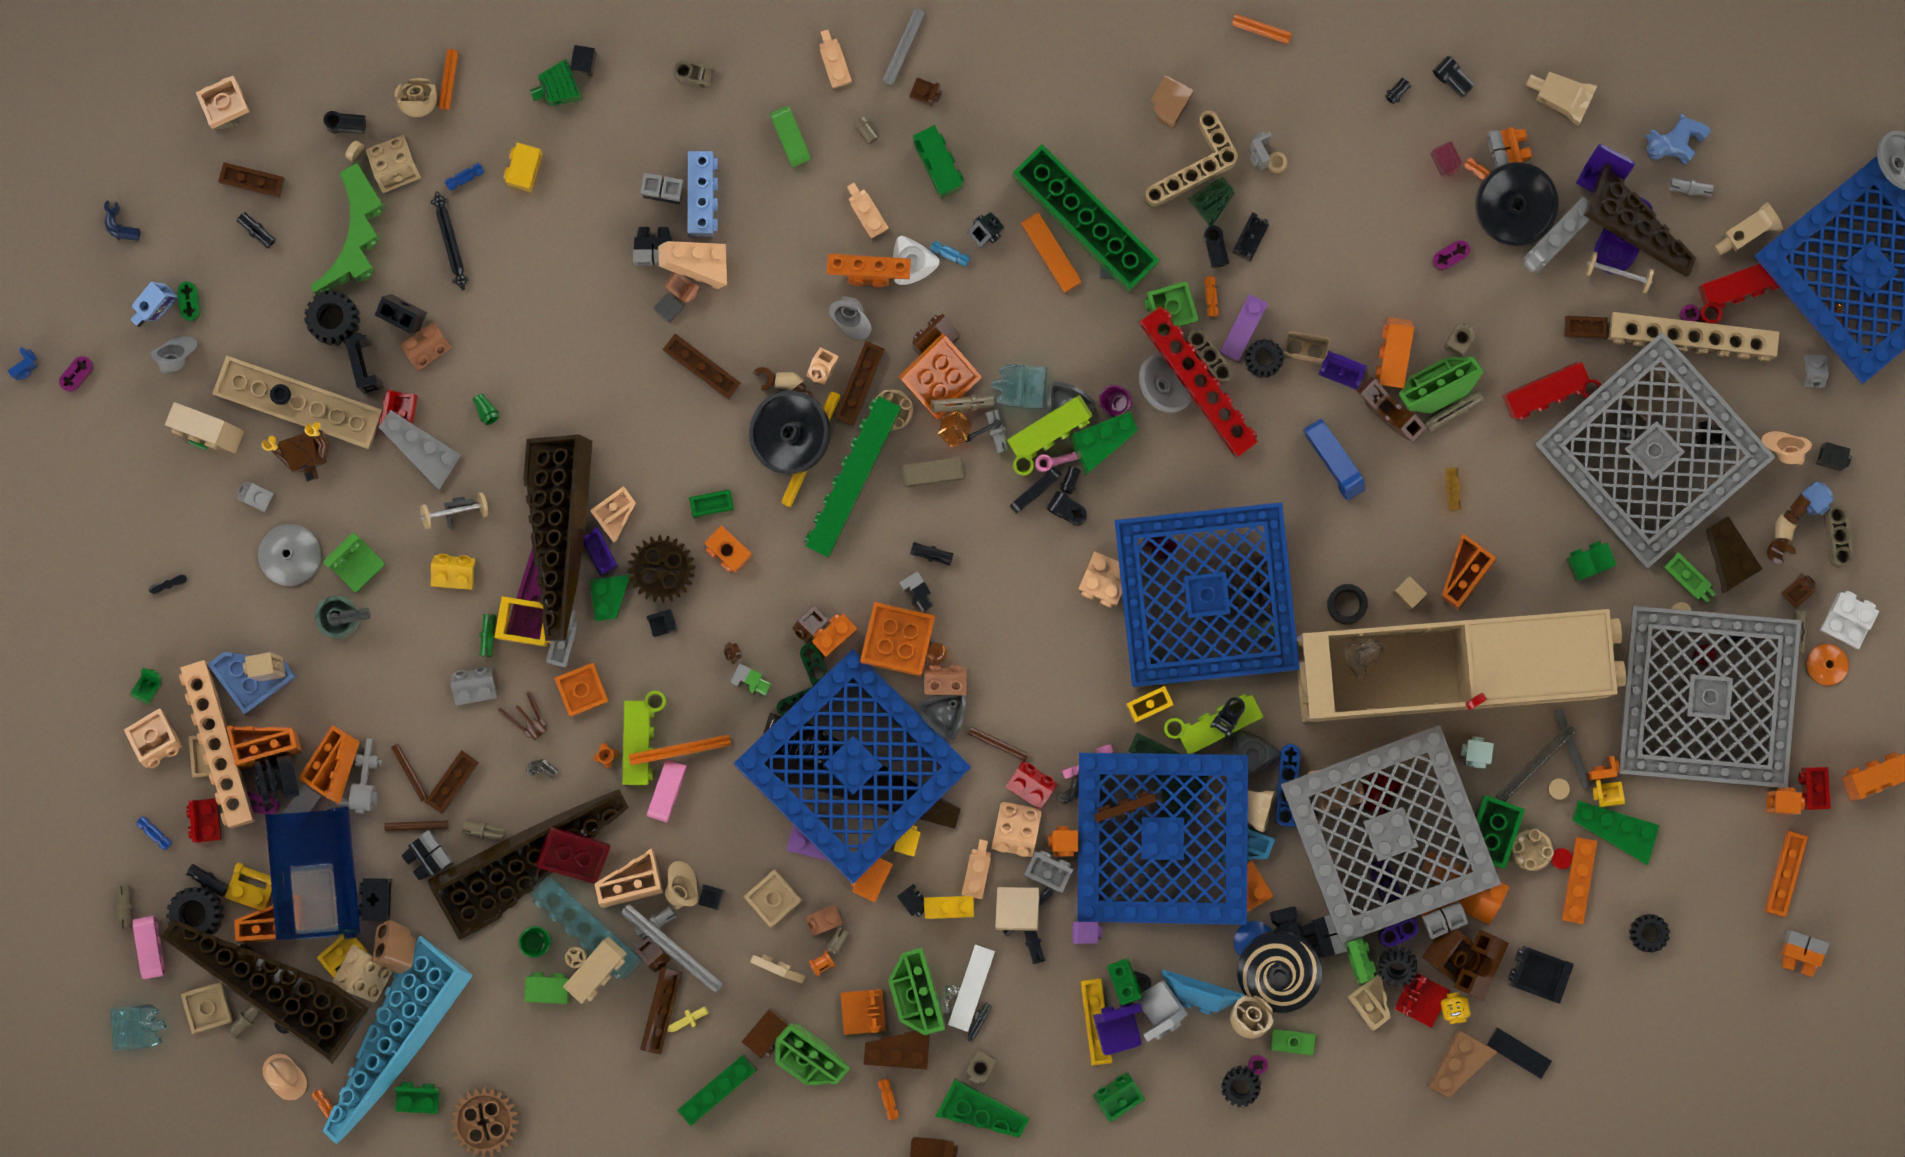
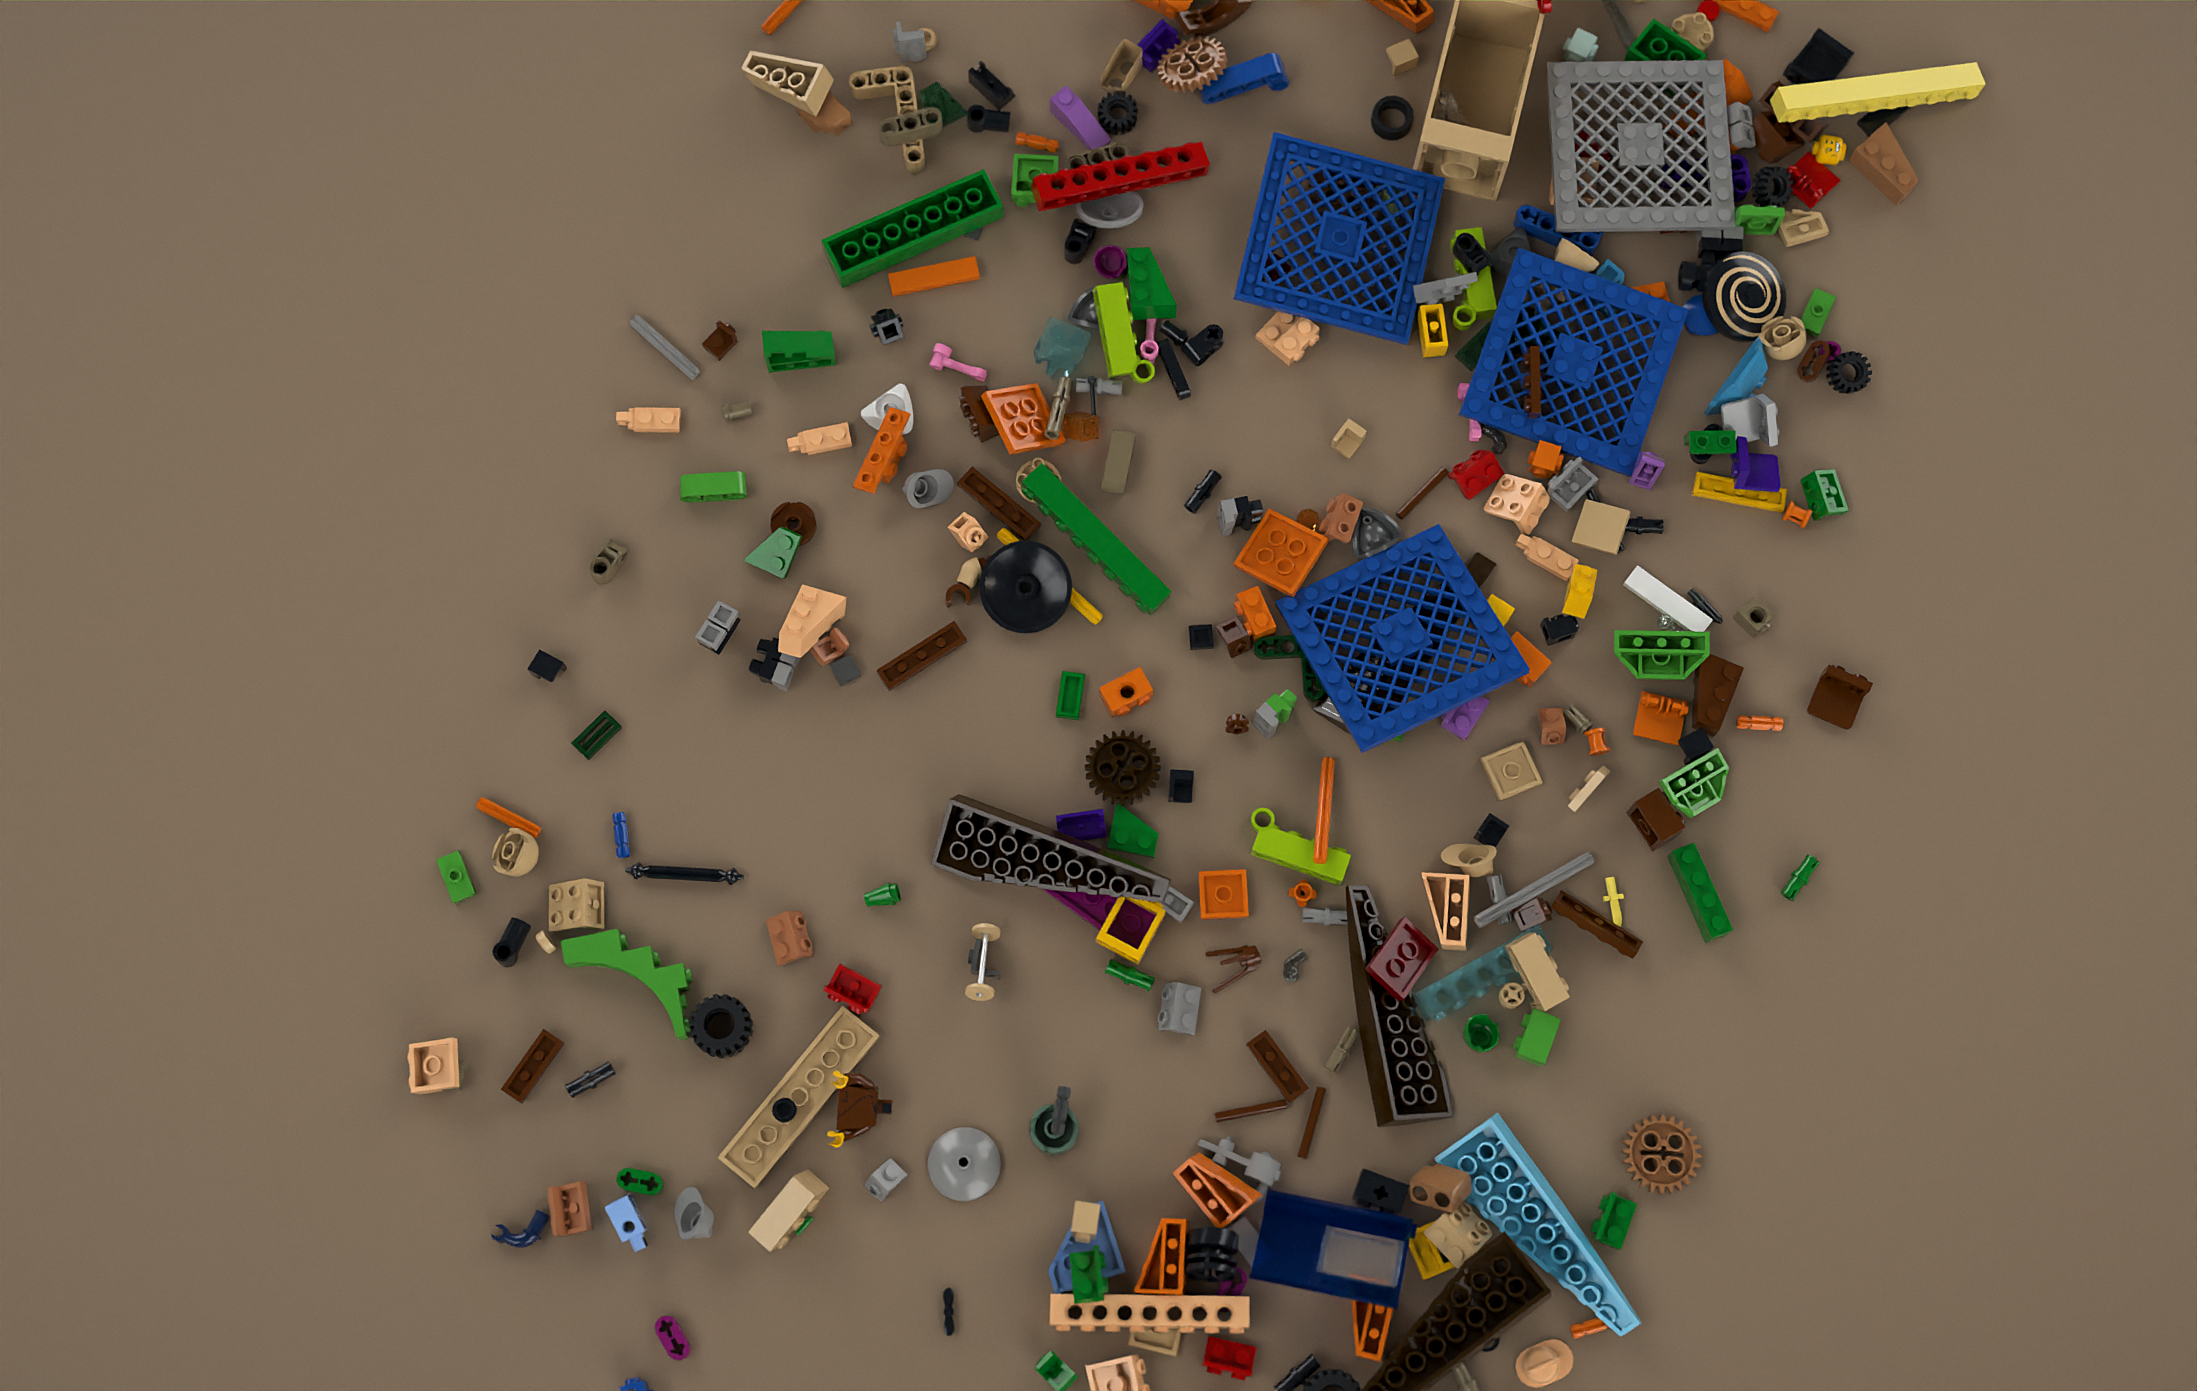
camera: 75 degrees left, 10 degrees down
(147, 253) = (569, 1209): none -> nougat bracket
(226, 684) = (1087, 1276): none -> green bracket
(247, 893) = (1328, 1333): yellow plate -> none
(354, 562) = (1000, 1092): bright green bracket -> none
(363, 381) = (788, 1013): black panel -> none
(385, 57) = (456, 877): none -> bright green plate
(400, 313) = (745, 949): black brick -> none
(421, 849) = (1359, 1115): hips -> none
(424, 451) = (906, 973): light grey wing -> none
(452, 571) = (1047, 989): yellow bracket -> none
(523, 167) = (636, 768): yellow brick -> none
(557, 85) = (563, 703): green torso -> none
(558, 131) = (611, 721): none -> dark green tile
(592, 780) = (1324, 916): none -> light grey pin
(614, 512) = (1043, 797): light nougat wing -> none
(666, 790) = (1362, 840): bright pink beam -> none
(701, 194) = (744, 596): light blue brick -> none
(749, 211) = (776, 552): none -> green wing
(777, 205) = (795, 511): none -> reddish brown plate
(801, 596) = (1201, 637): none -> black tile
(846, 1048) = (1695, 745): none -> black panel
(950, 253) = (897, 372): dark azure axle -> none
(975, 287) = (941, 358): none -> bright pink brick
(978, 1109) = (1793, 639): green wing -> none
(1024, 664) = (1348, 438): none -> tan panel
(1090, 1077) = (1797, 514): none -> orange bush
(1130, 365) = (1079, 238): none -> black piece
(1176, 191) = (904, 135): none -> dark tan beam
(1182, 65) = (789, 79): none -> tan wedge
(1190, 700) = (1443, 288): none -> light grey plate
(1240, 1056) = (1809, 358): none -> reddish brown beam
(1319, 398) = (1180, 73): none -> medium nougat gear
(1523, 1036) = (1877, 92): none -> light yellow brick

